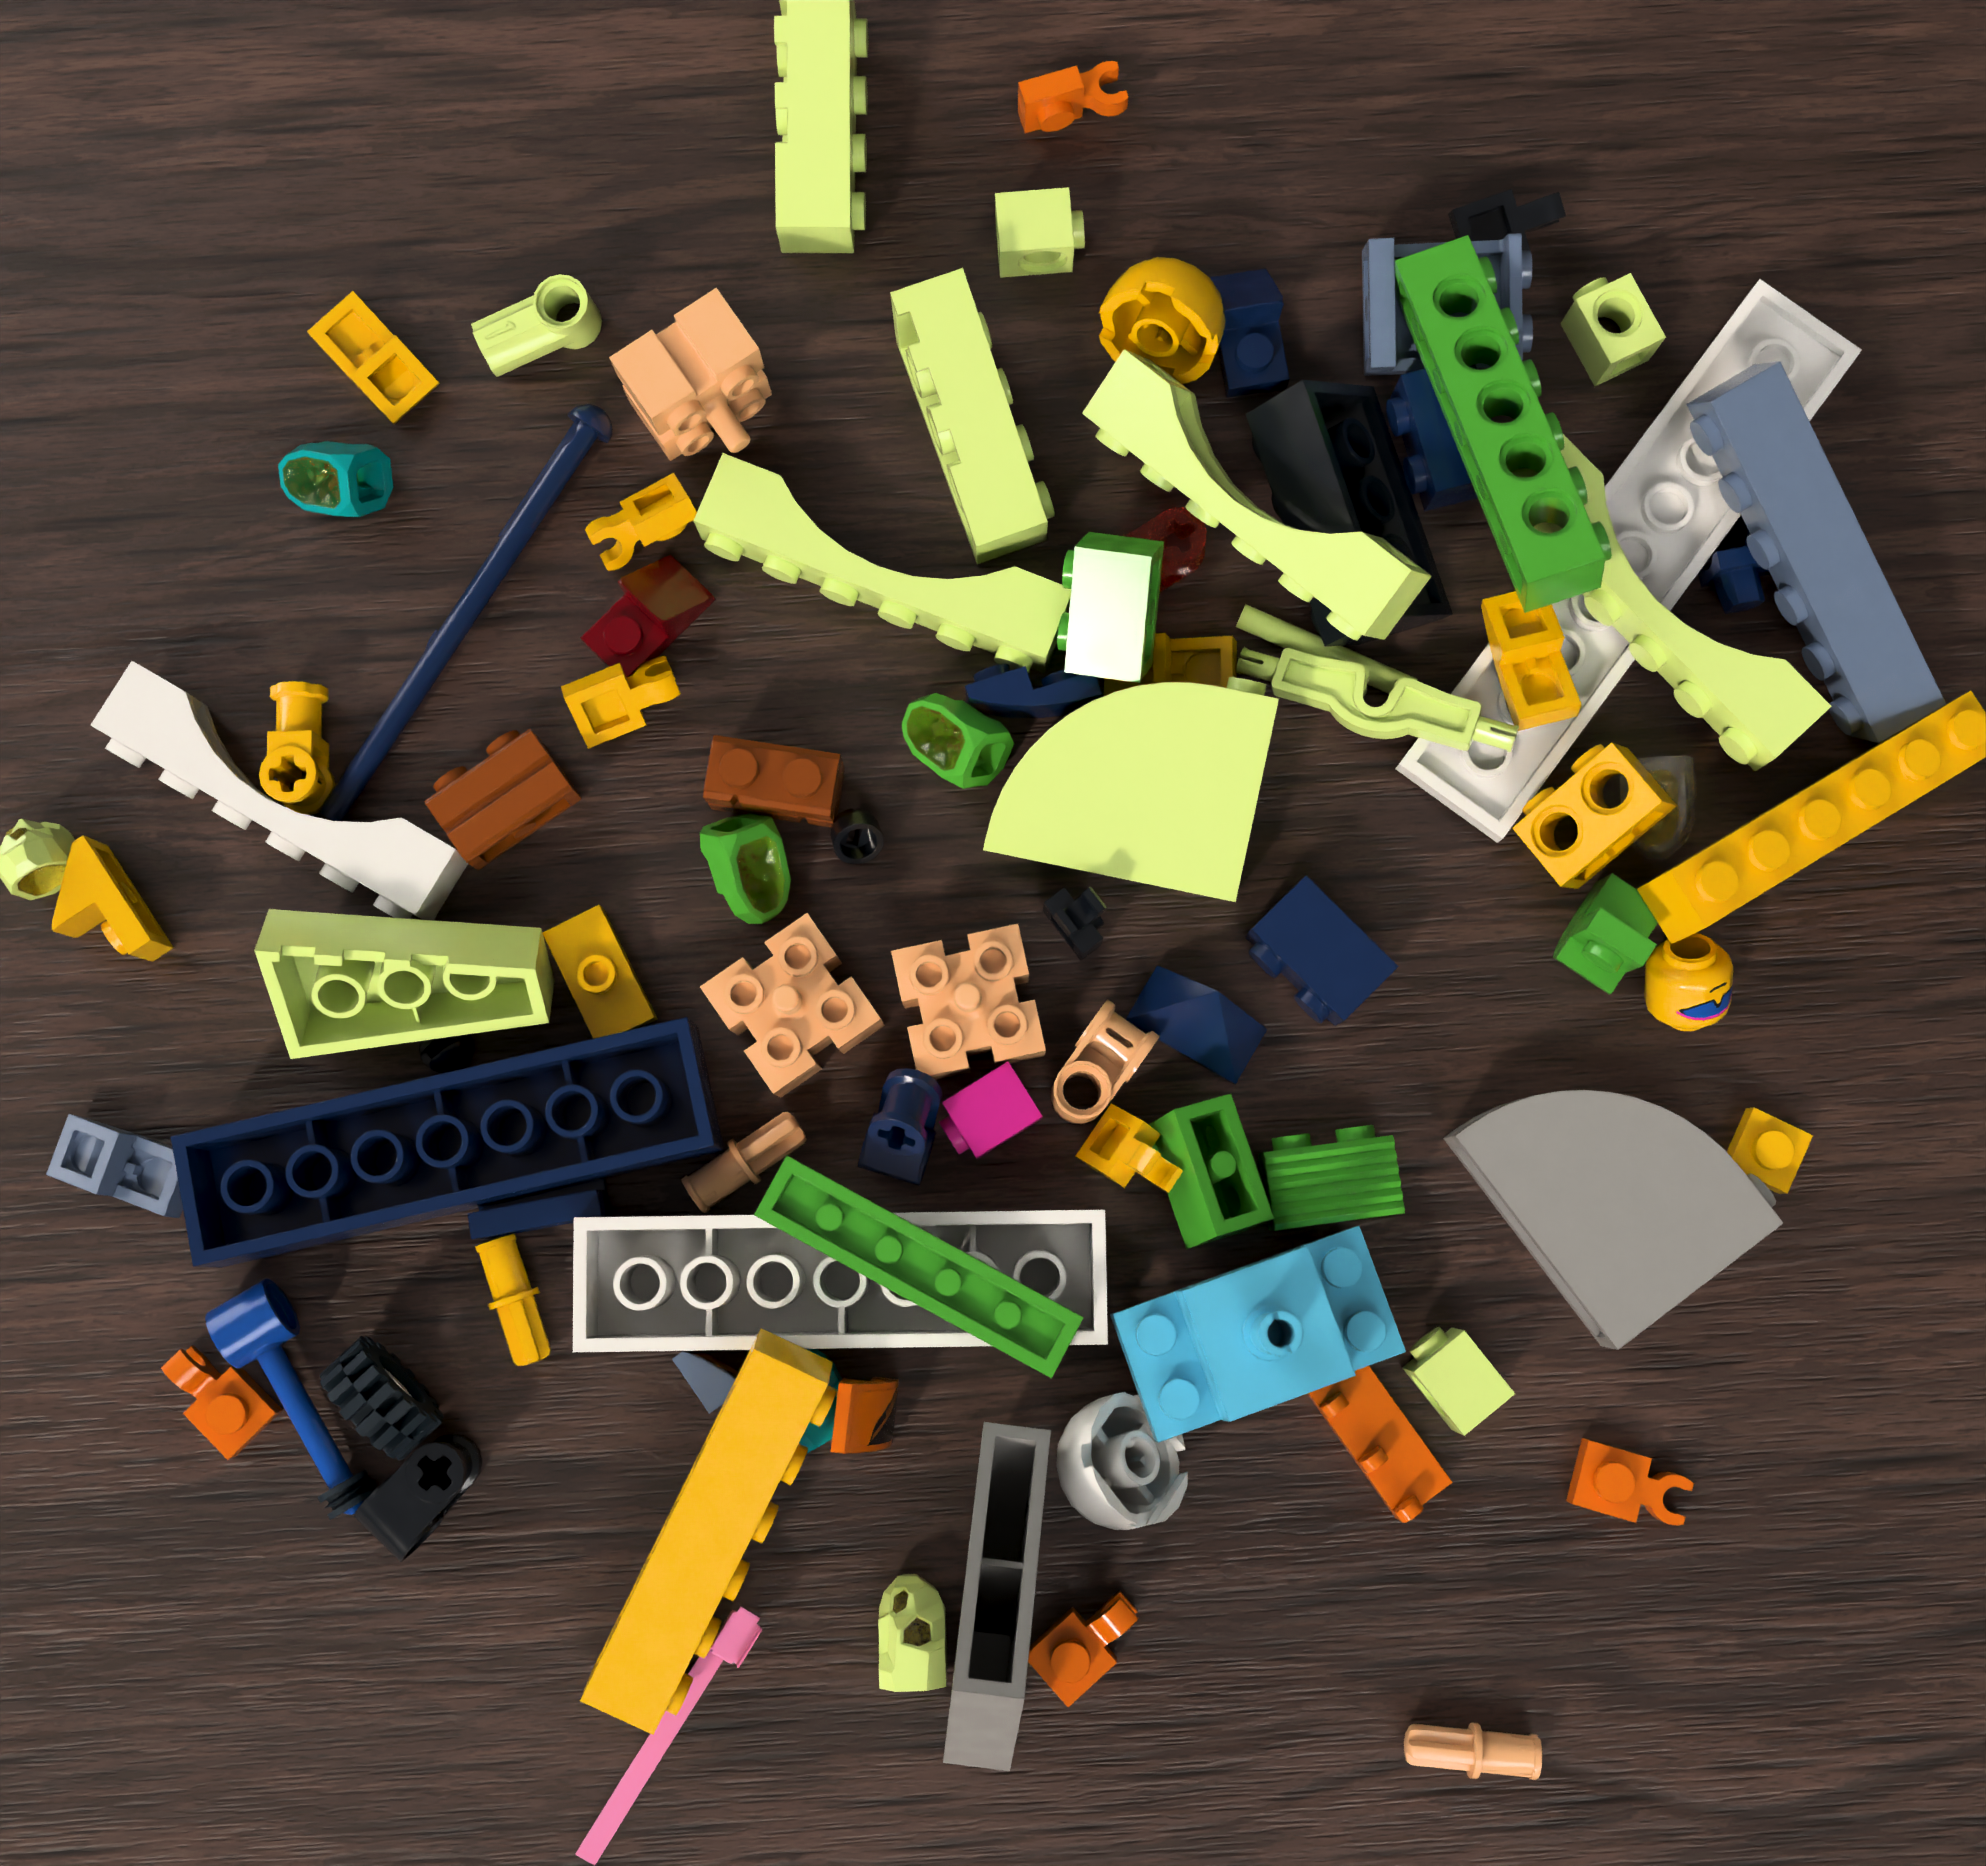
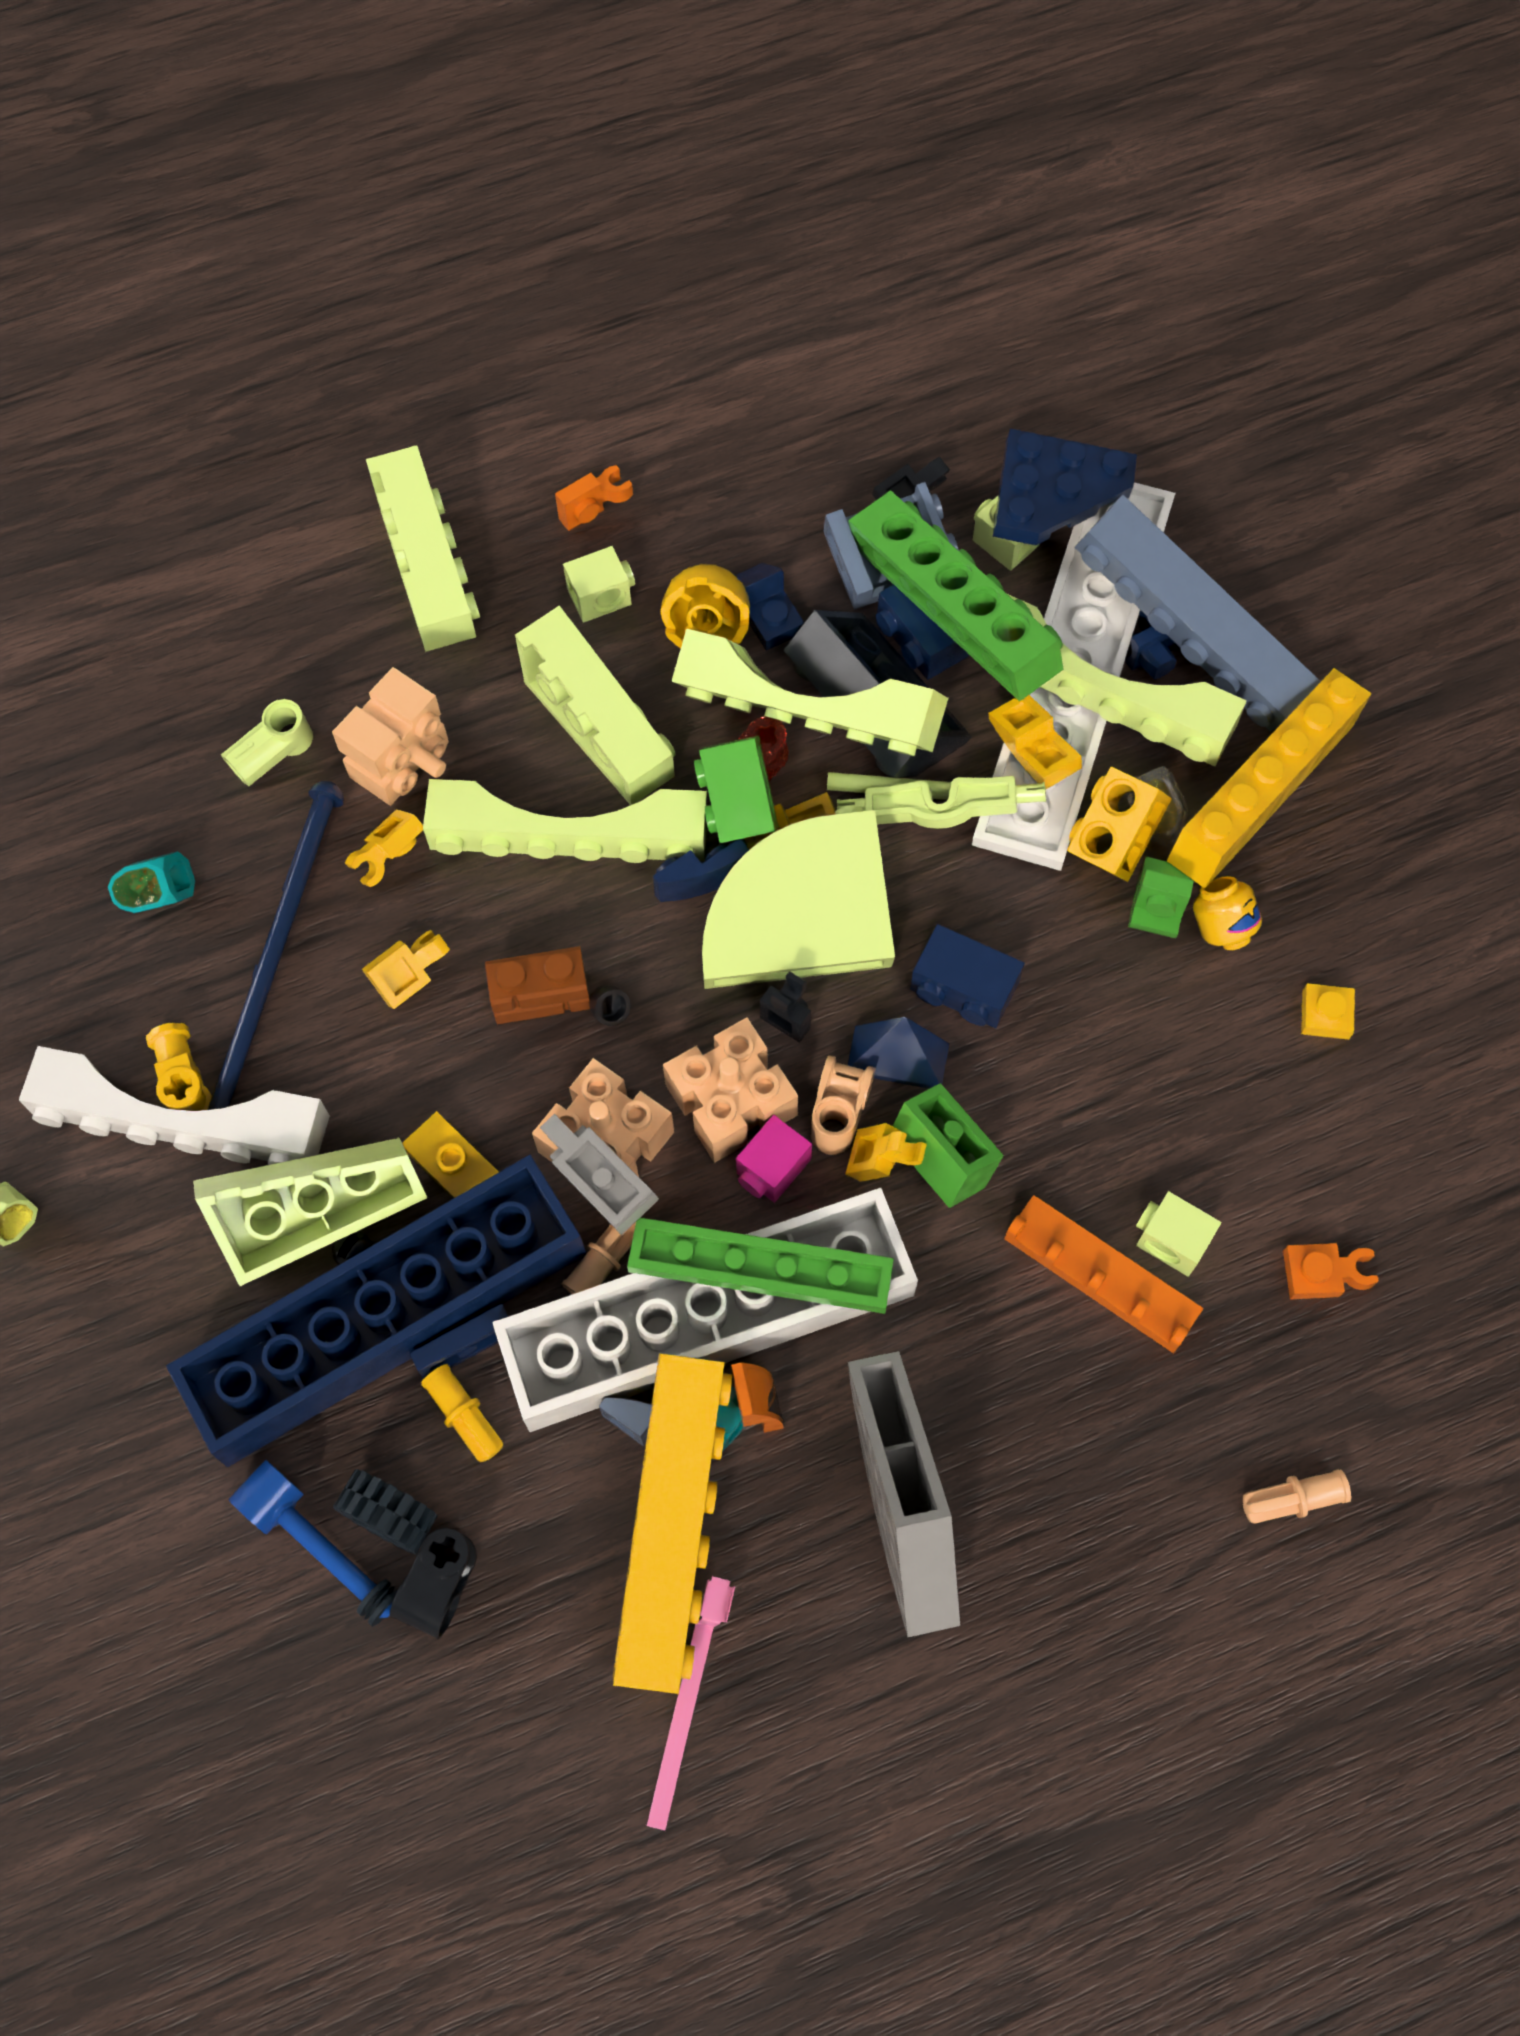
camera: 20 degrees left, 15 degrees down
(100, 890) = (55, 1223): yellow slope -> none
(117, 1165) = (128, 1417): sand blue slope -> none
(228, 1406) = (262, 1572): orange plate -> none
(373, 357) = (154, 801): yellow slope -> none
(501, 797) = (342, 1058): dark orange brick -> none
(650, 615) = (410, 907): dark red slope -> none
(748, 865) = (539, 1049): bright green rock -> none
(757, 1082) = (599, 1174): none -> light grey hinge
(903, 1129) = (712, 1184): dark blue piece -> none
(912, 1636) = (850, 1557): yellowish green rock -> none
(956, 740) = (659, 917): bright green rock -> none
(1076, 1652) = (978, 1528): orange plate -> none
(1116, 1468) = (958, 1368): white cylinder -> none
(1258, 1335) = (1020, 1241): medium azure brick -> none
(1331, 1180) = (1036, 1125): bright green brick -> none
(1615, 1201) = (1234, 1074): light grey brick -> none
(1701, 290) = (1056, 484): none -> dark blue plate

